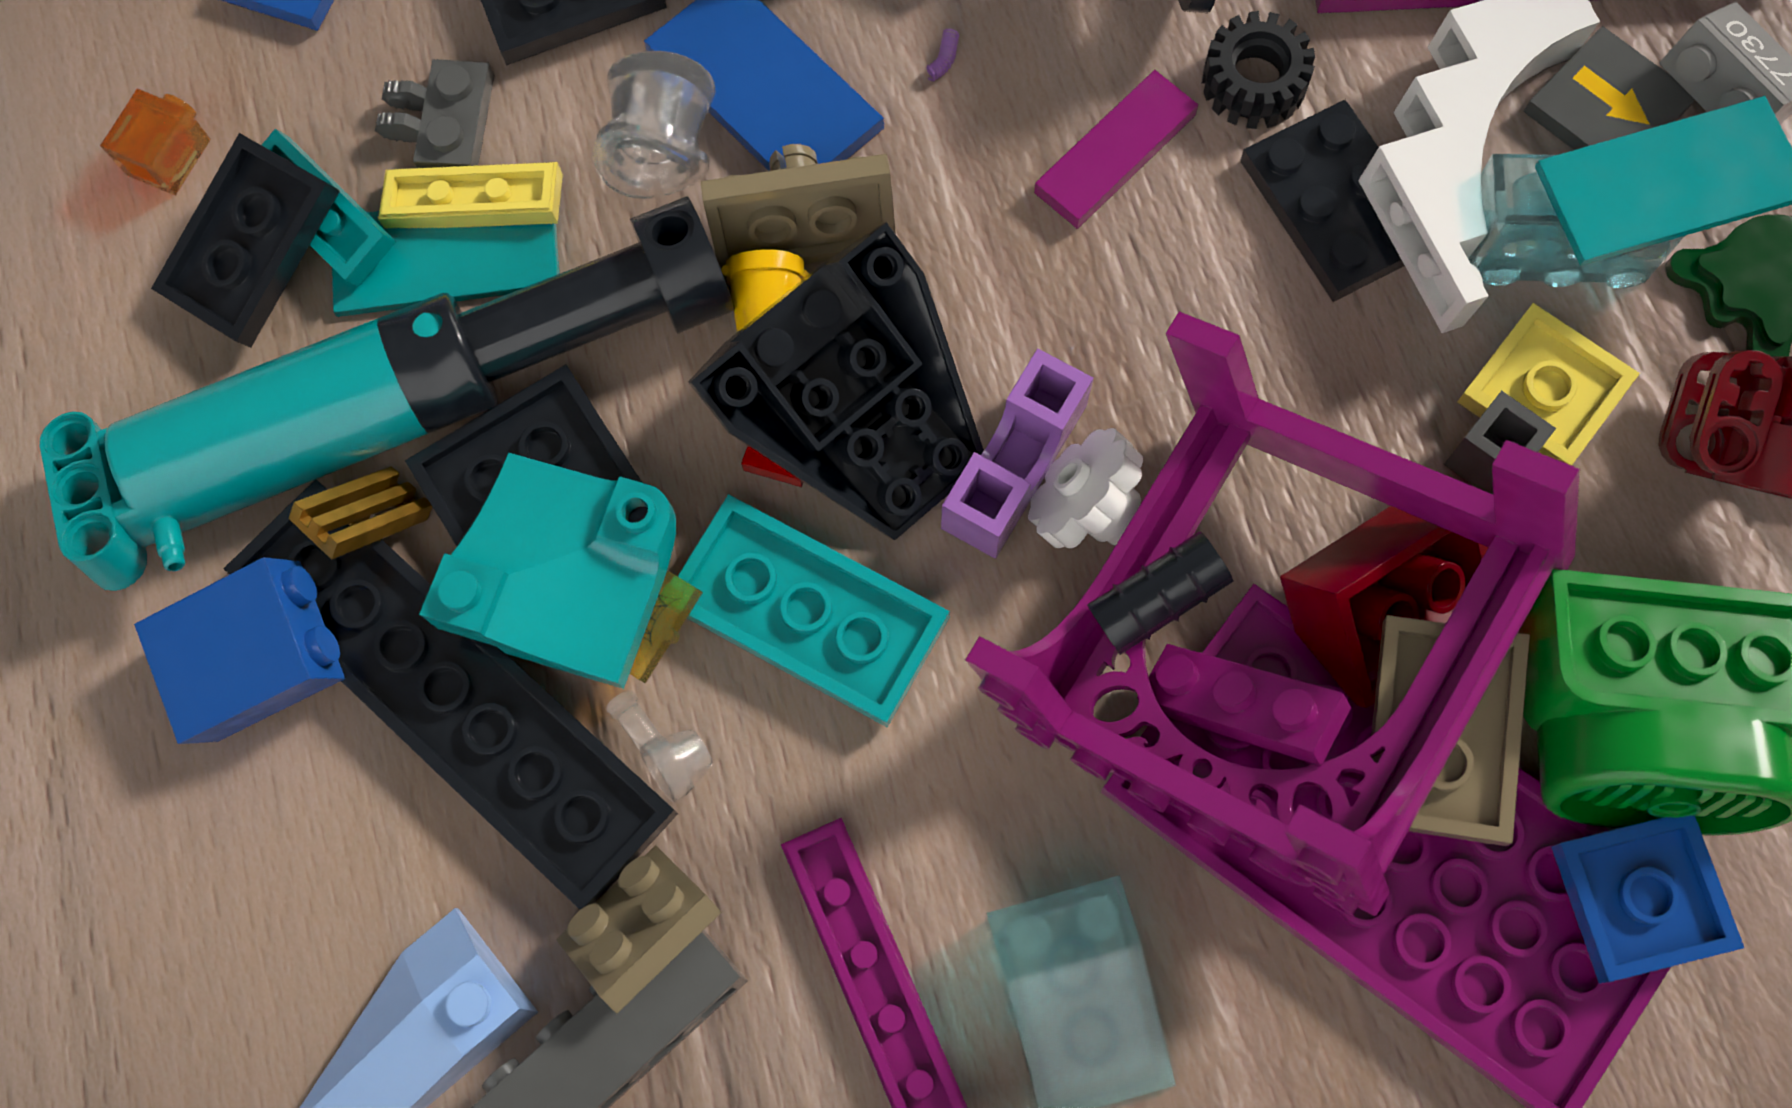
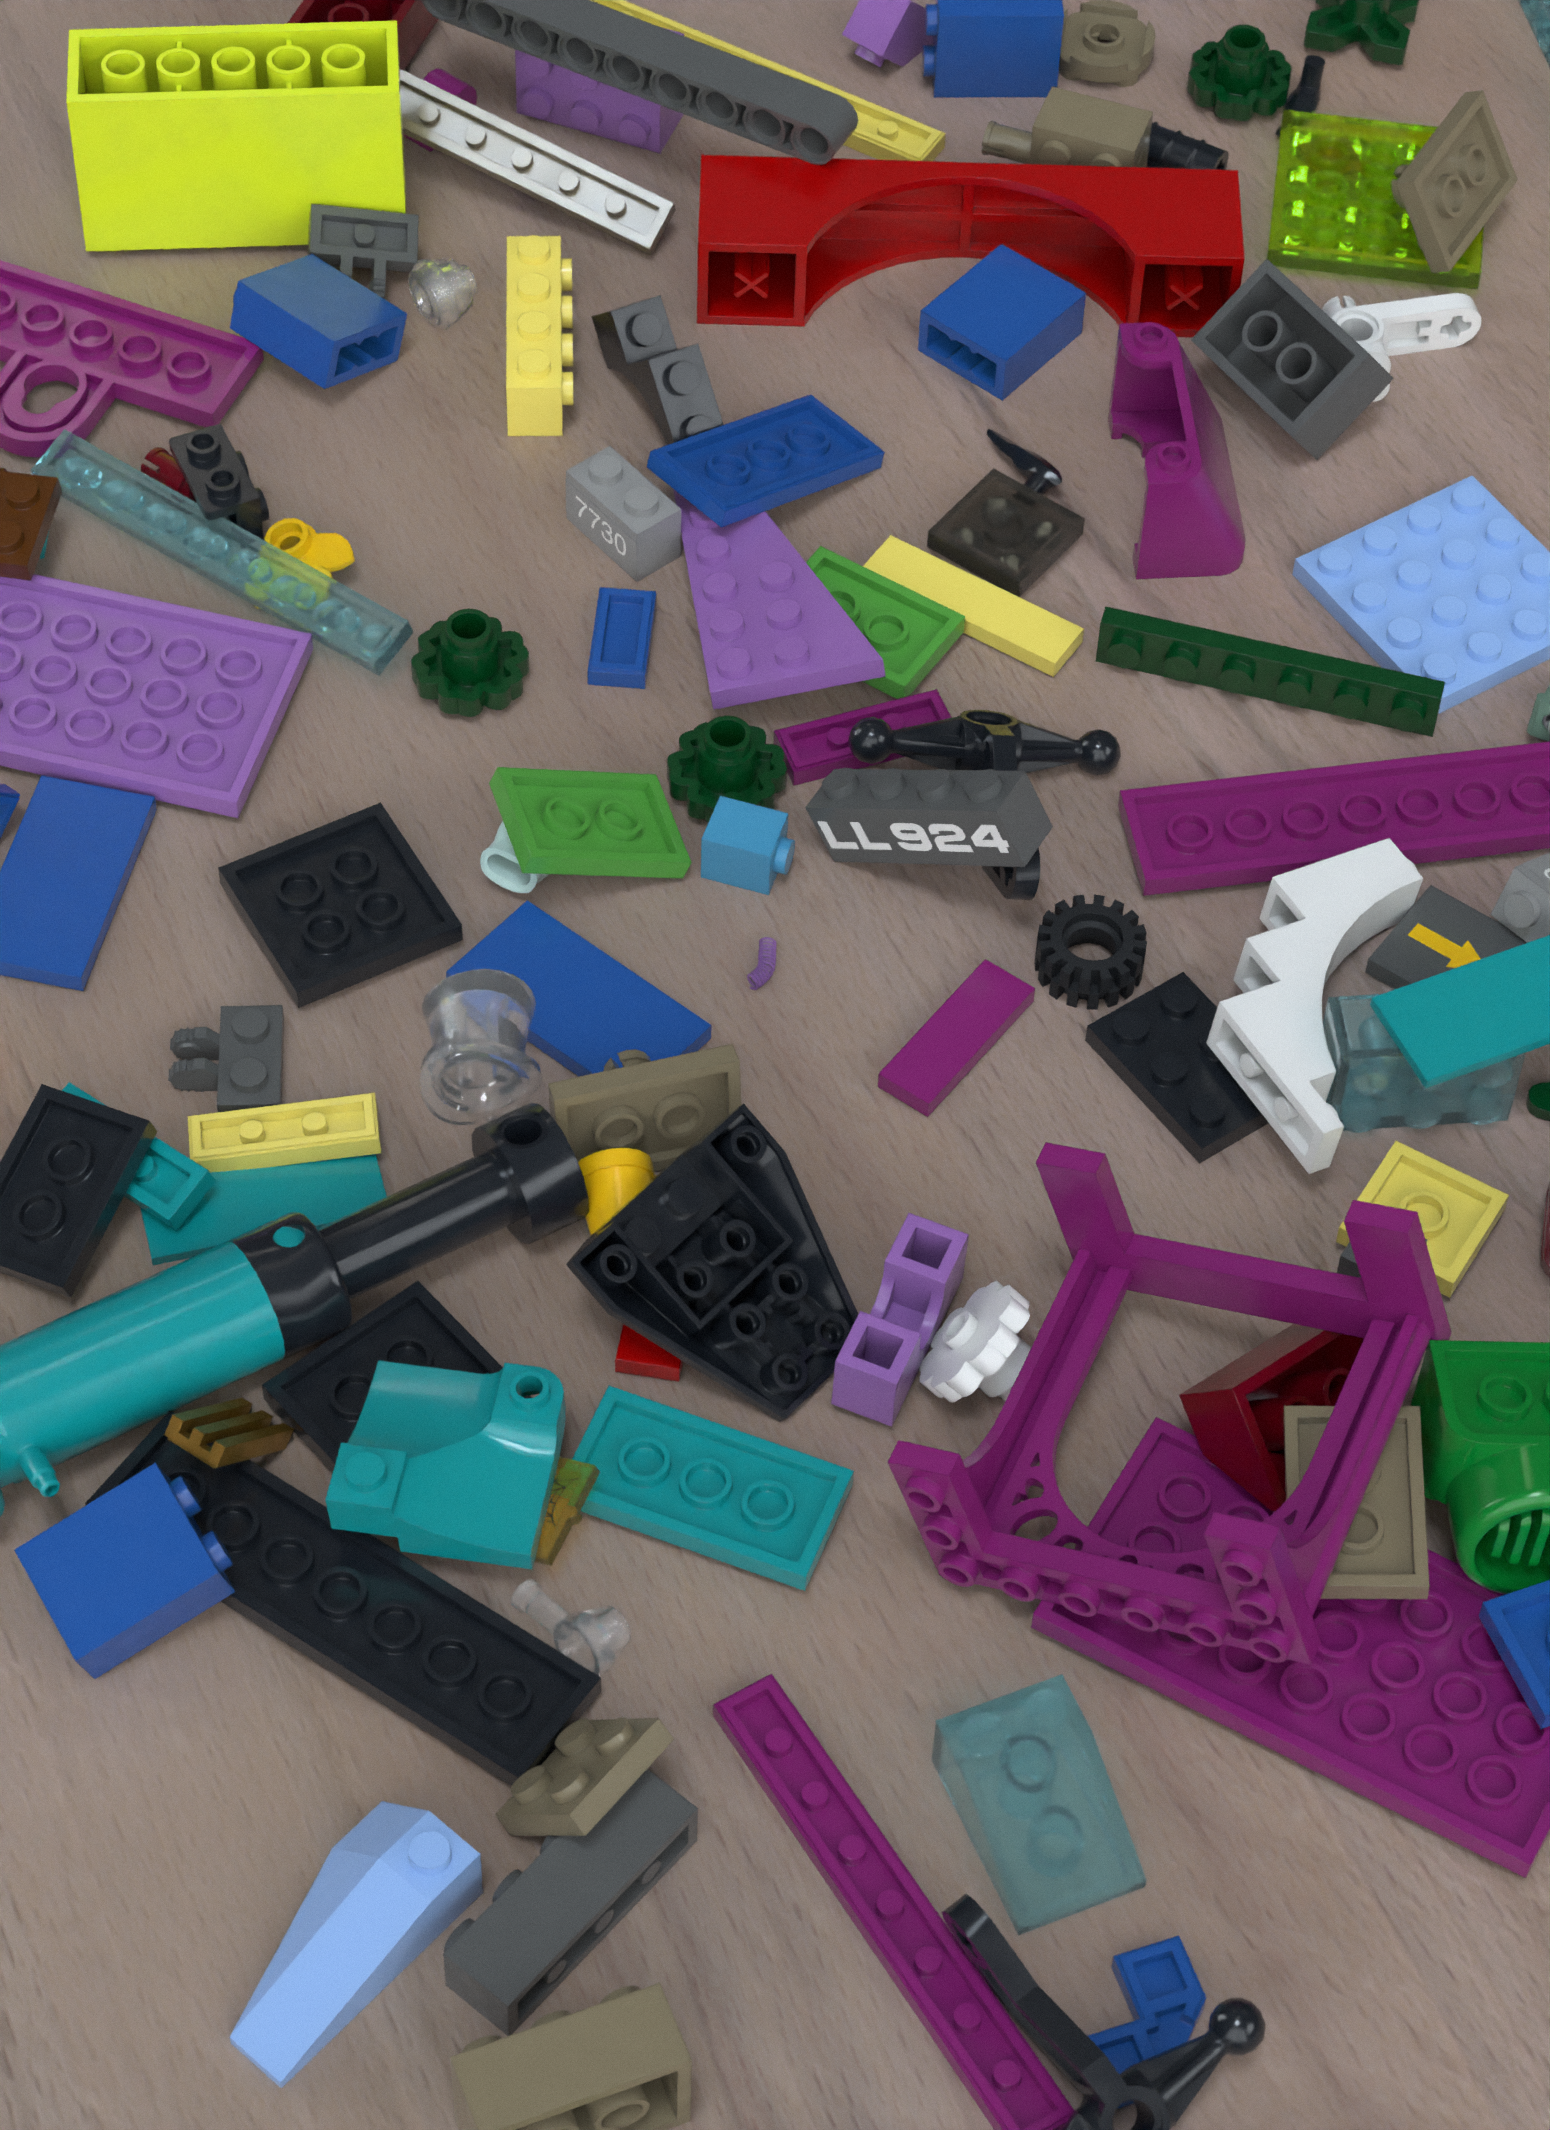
camera: 15 degrees left, 20 degrees down
(1160, 592) = (1063, 1414): black axle -> none
(1248, 703) = (1161, 1503): magenta plate -> none

